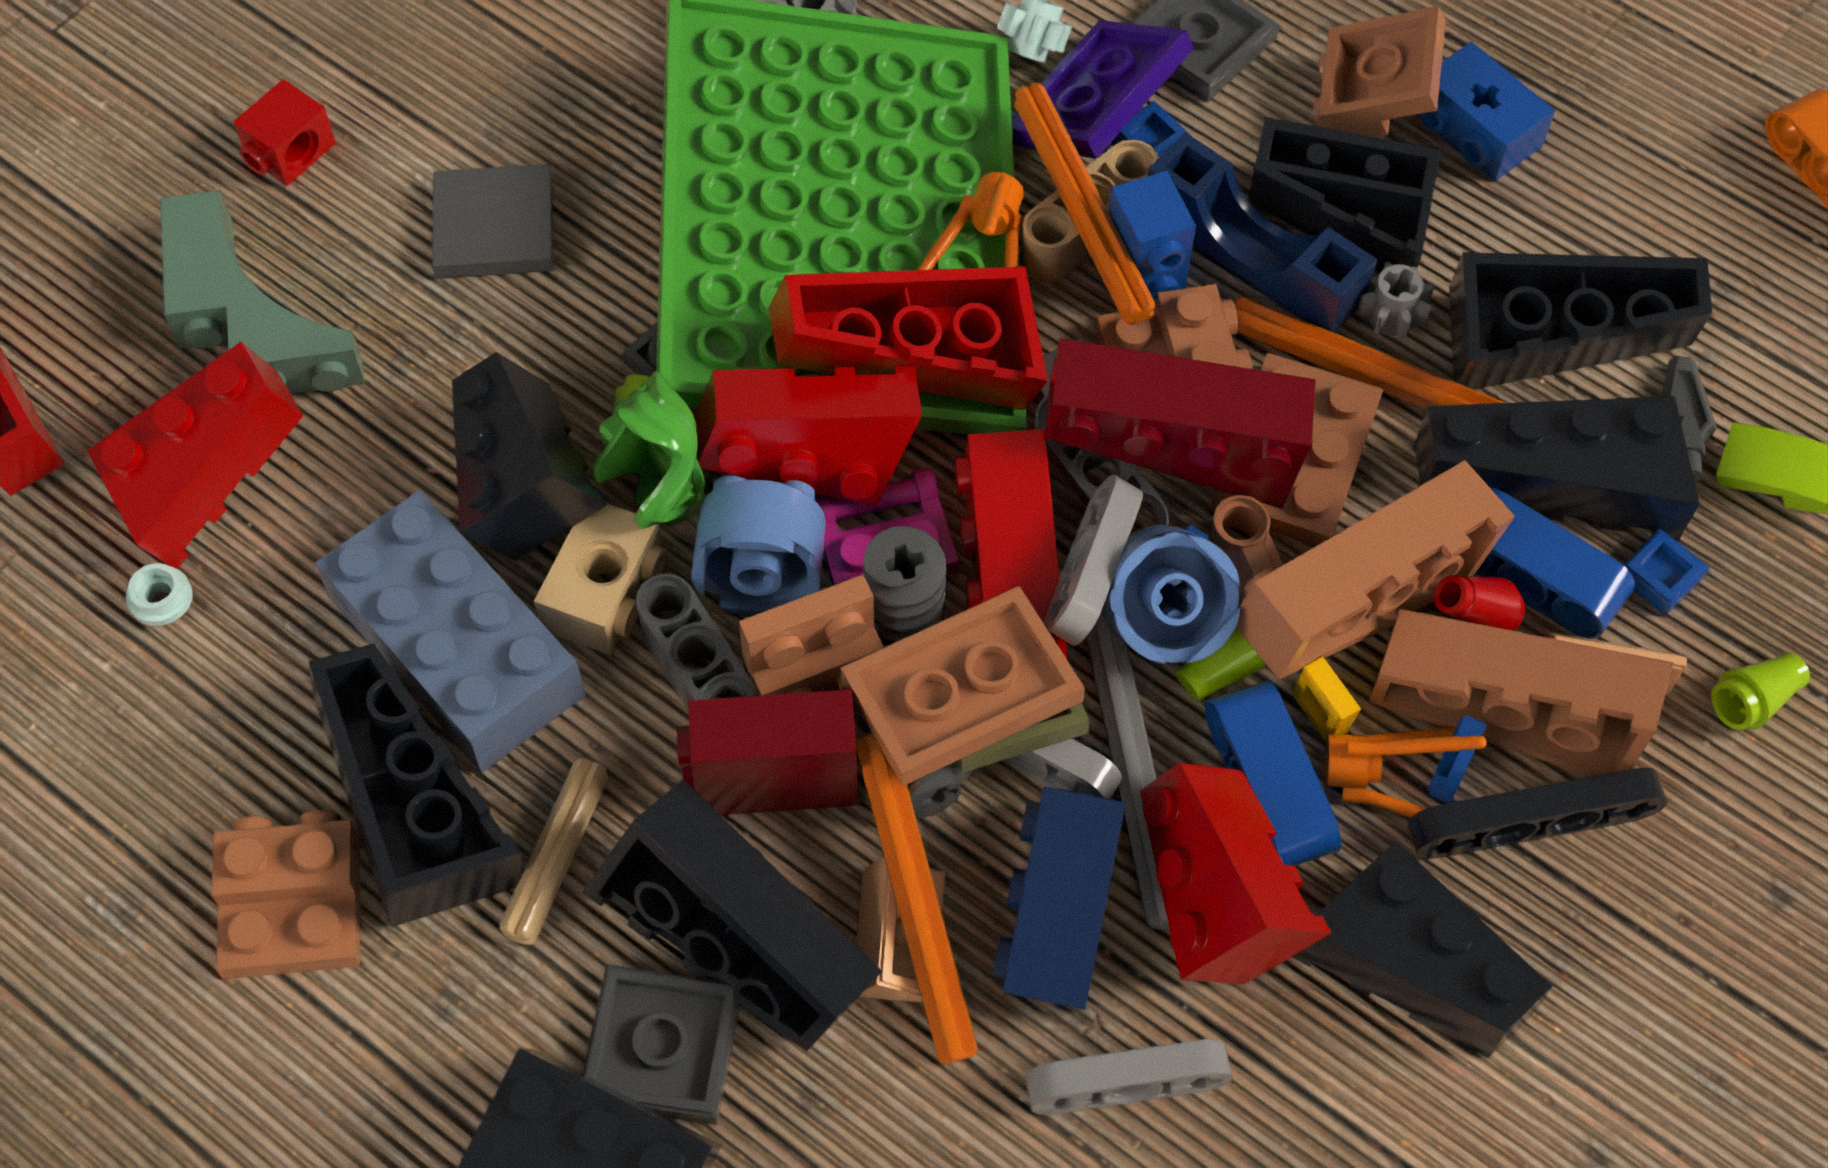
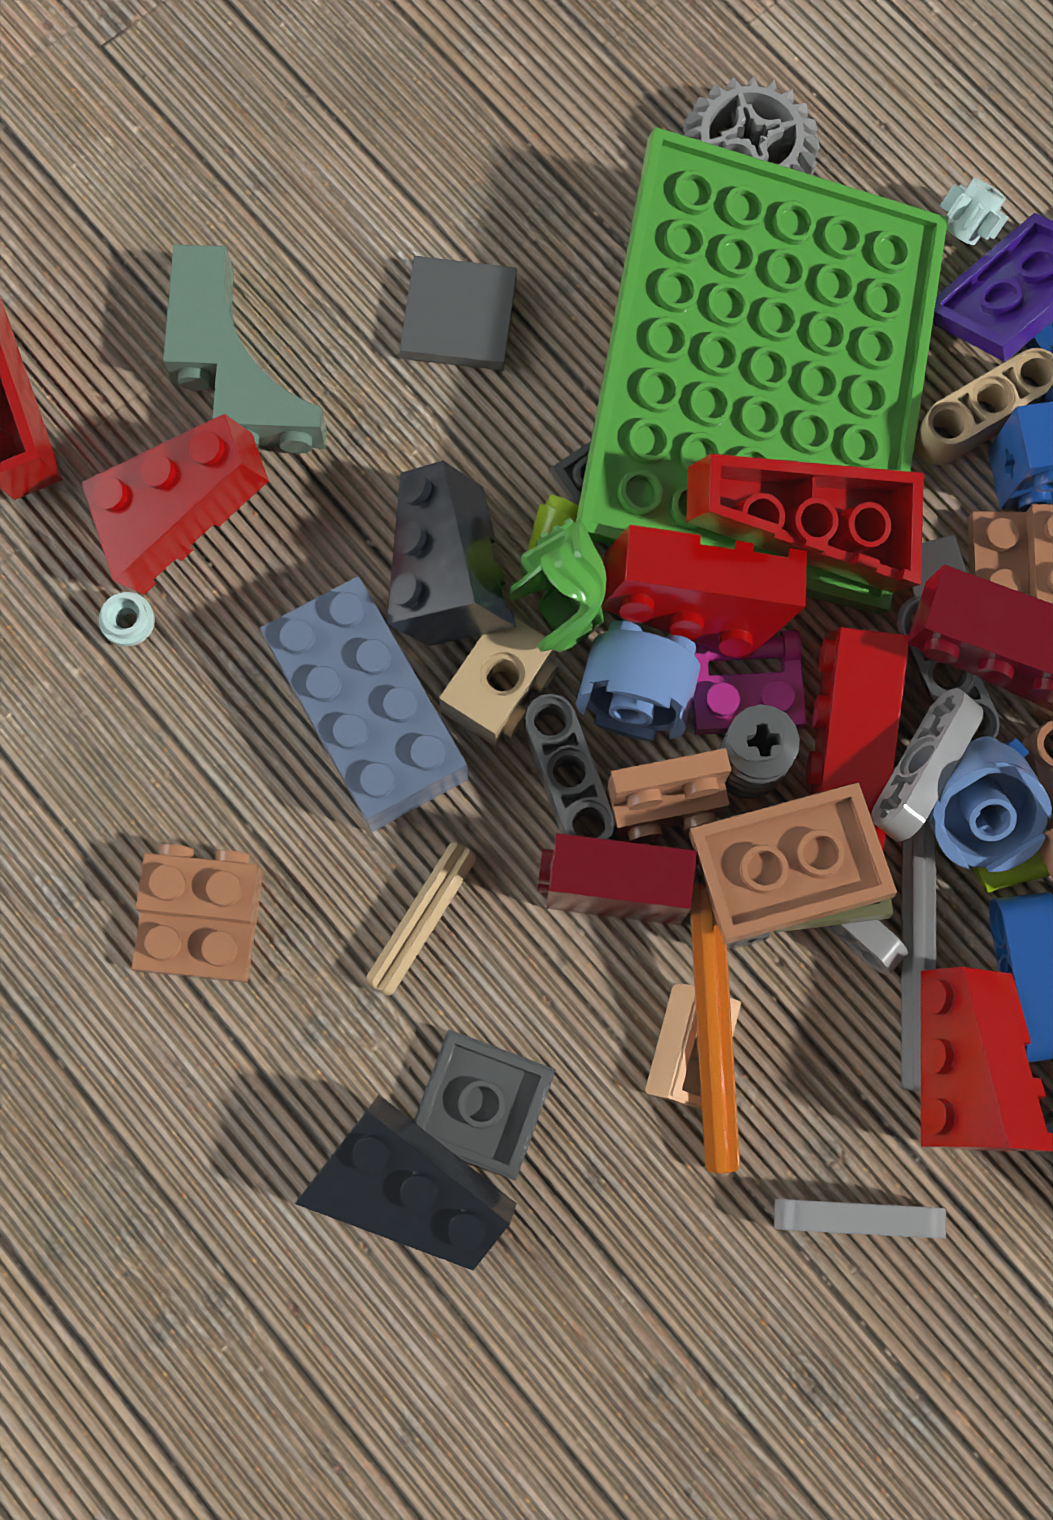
camera: 10 degrees right, 15 degrees up
(284, 133) = (289, 193): red brick -> none
(413, 808) = (310, 864): black wedge -> none
(733, 916) = (562, 1020): black wedge -> none
(992, 212) = (903, 401): orange plant -> none
(1060, 897) = (837, 1056): dark blue wedge -> none
(1084, 204) = (986, 408): orange axle -> none

